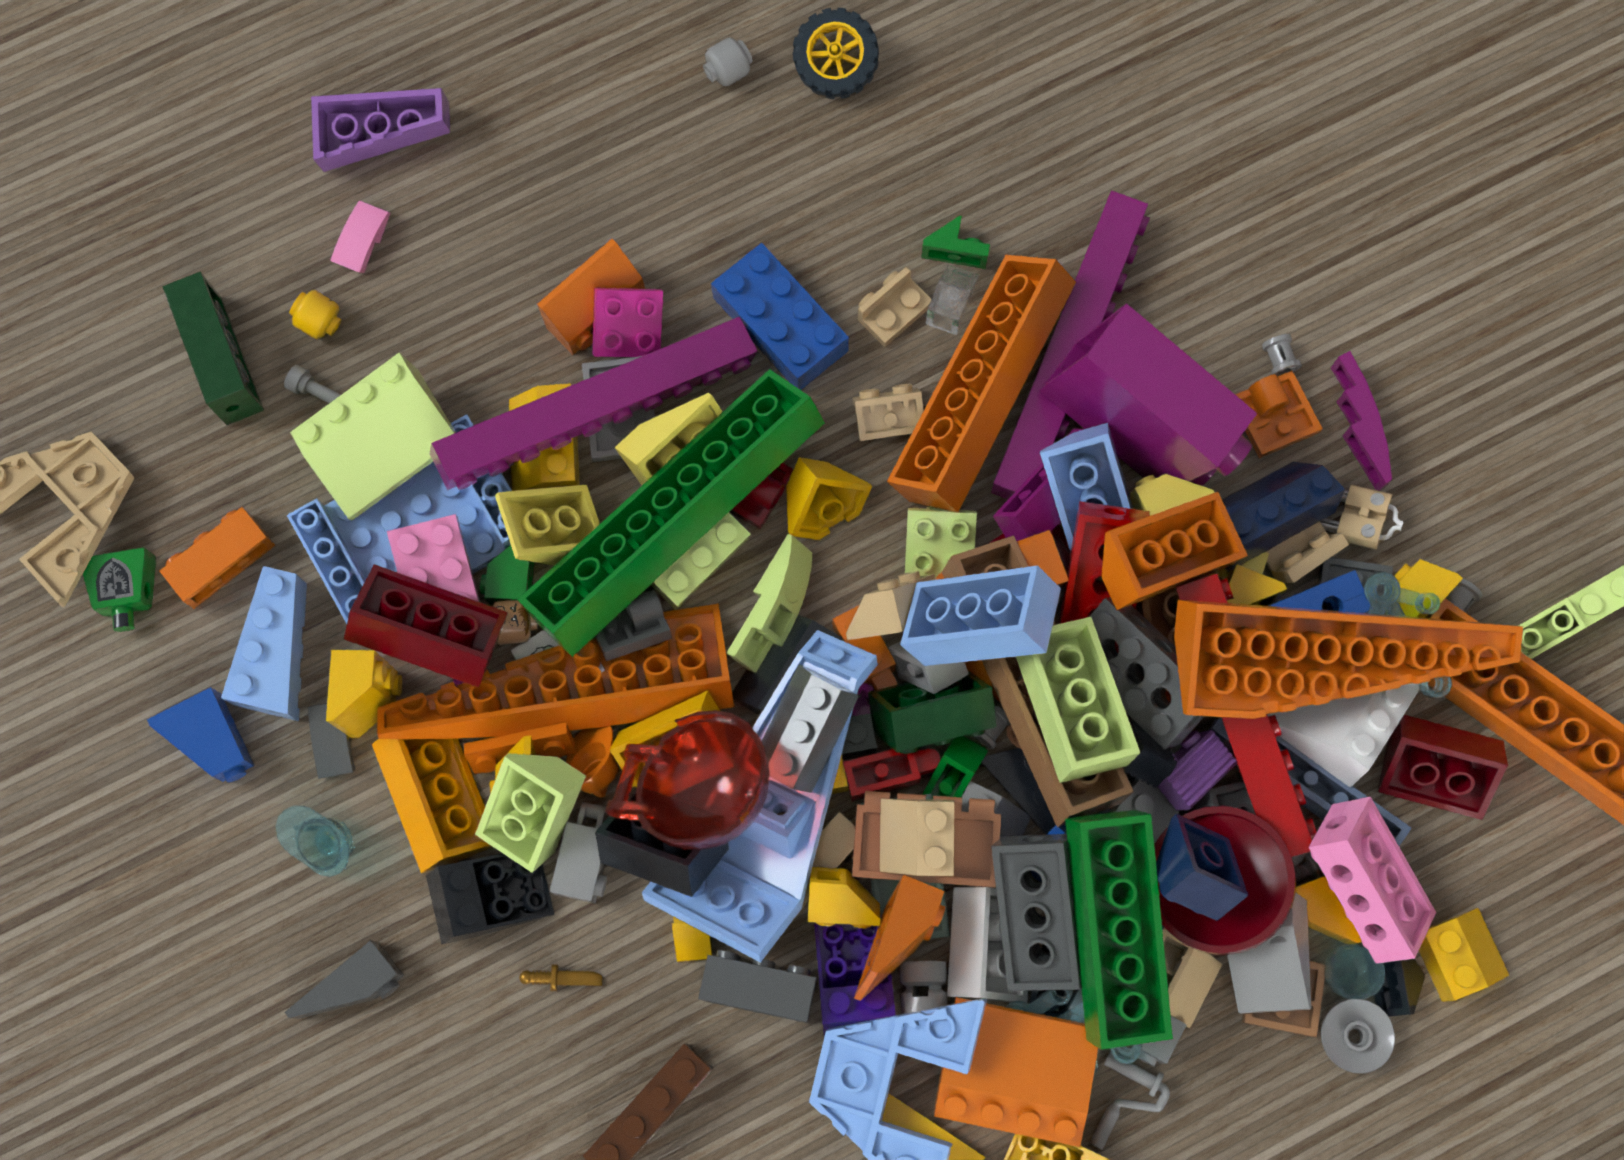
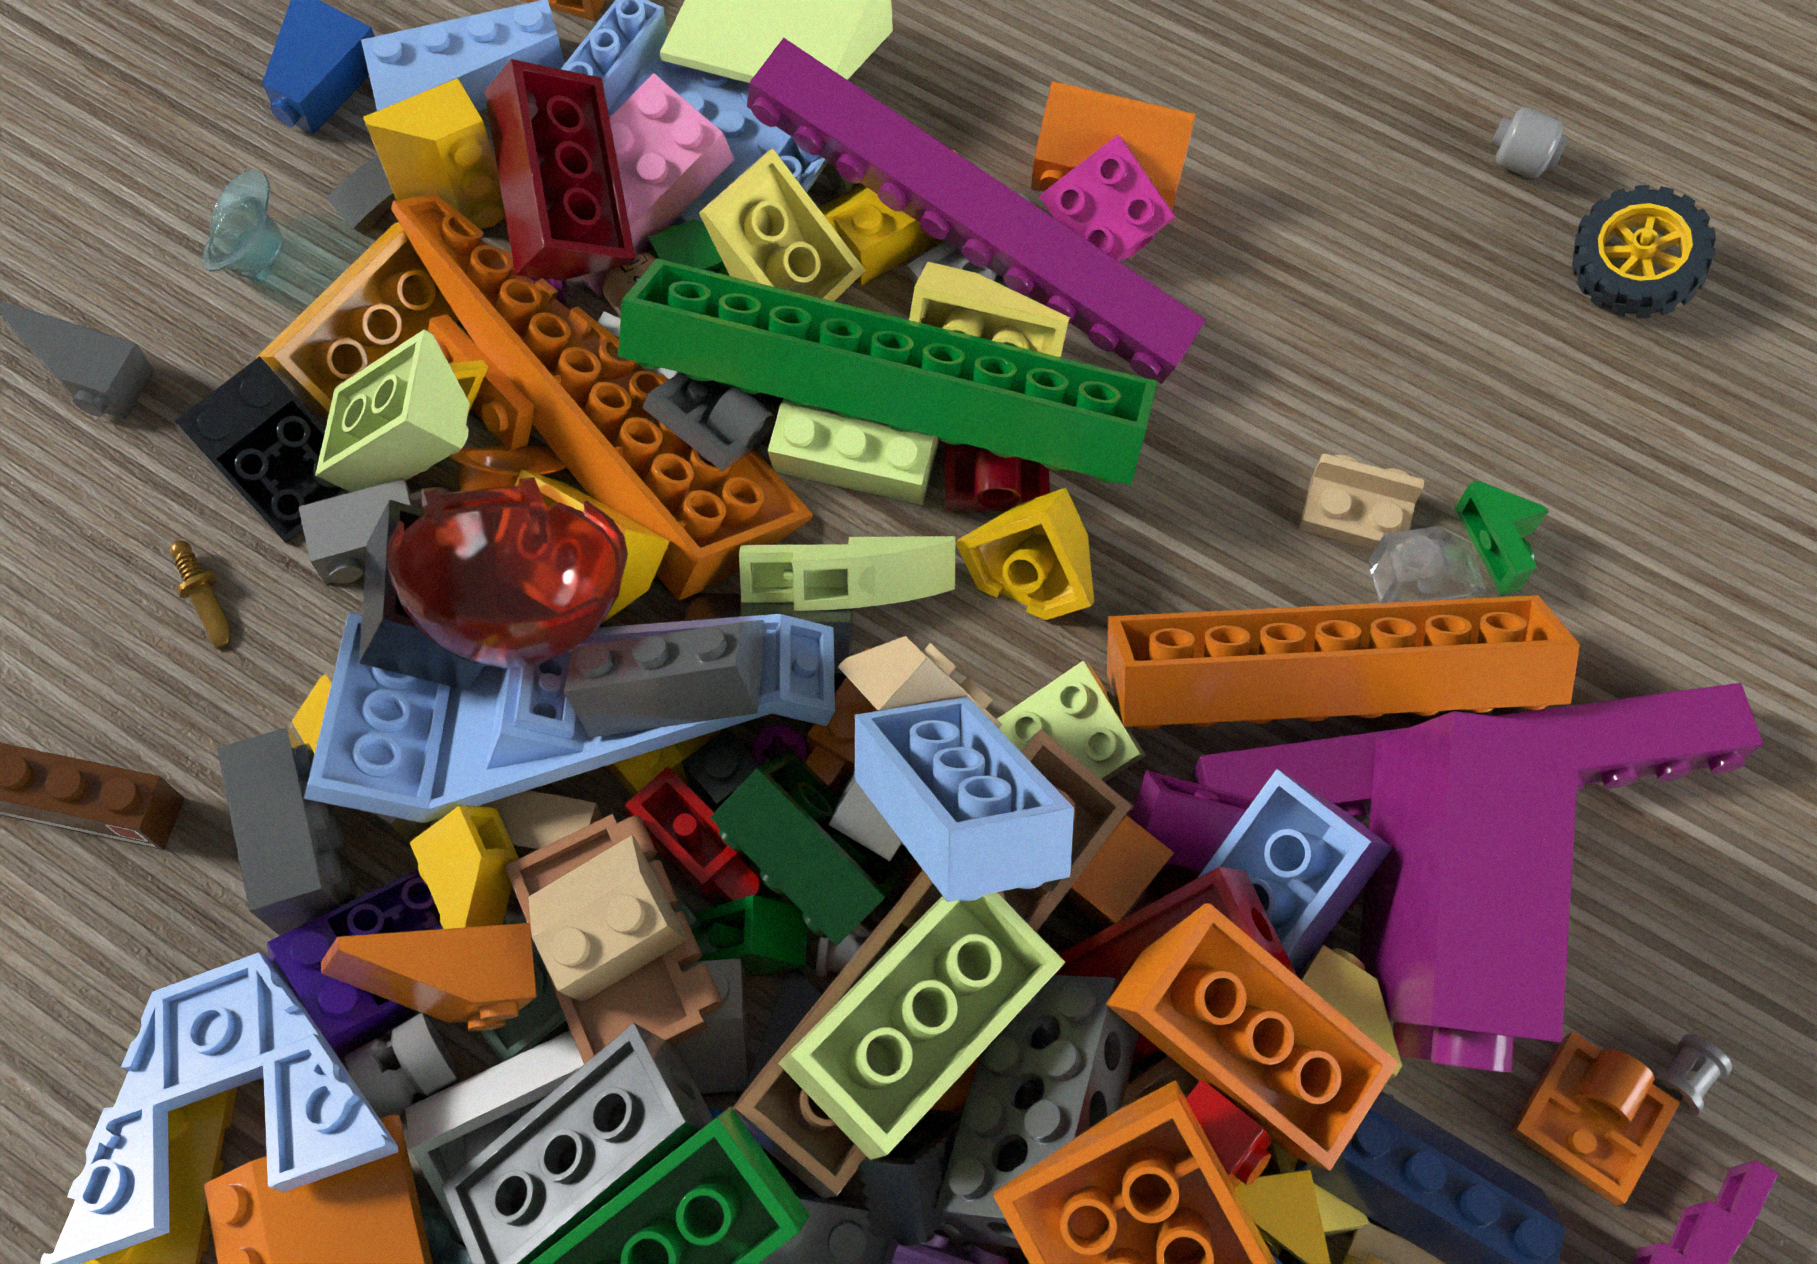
camera: 55 degrees right, 10 degrees down
(780, 316) = (1243, 376): blue brick -> none
(888, 412) = (1204, 573): tan bracket -> none

